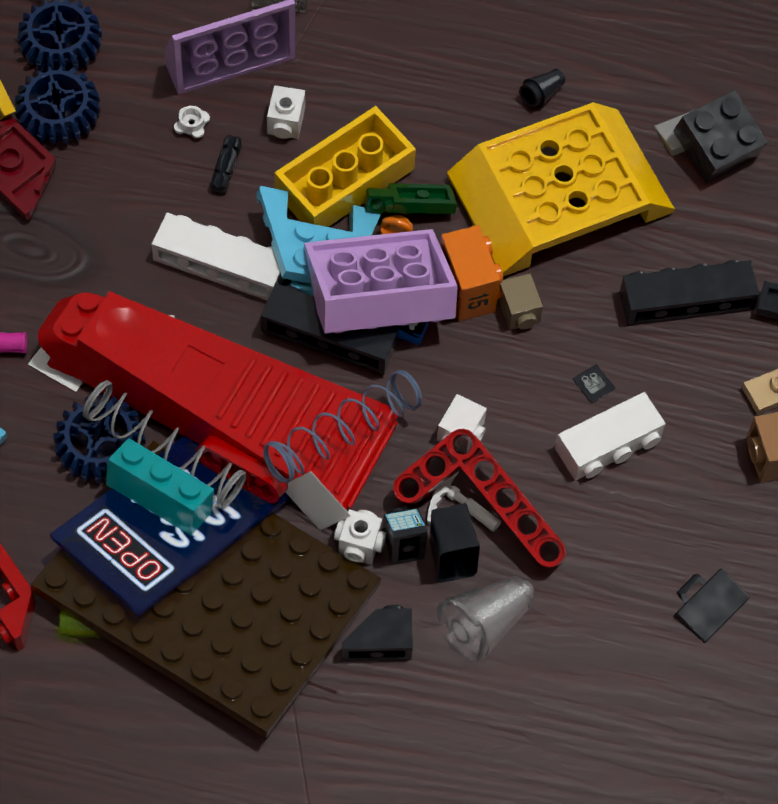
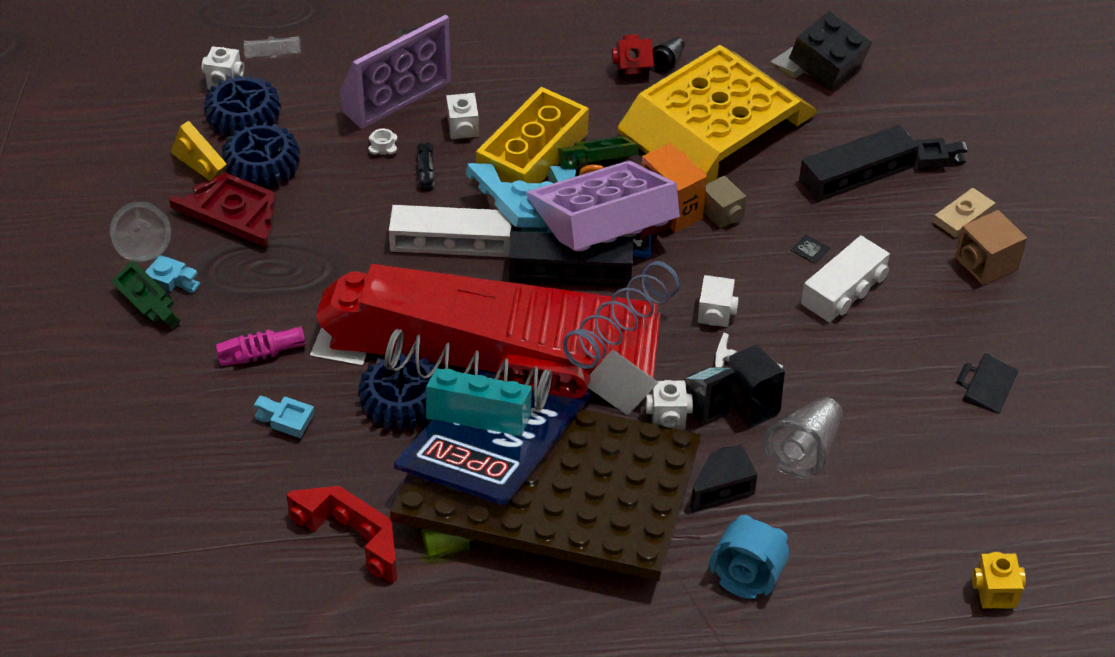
camera: 15 degrees left, 15 degrees down
(367, 738) = (750, 557): none -> dark azure brick
(490, 489) = (766, 339): red beam -> none
(496, 93) = (642, 50): none -> red brick

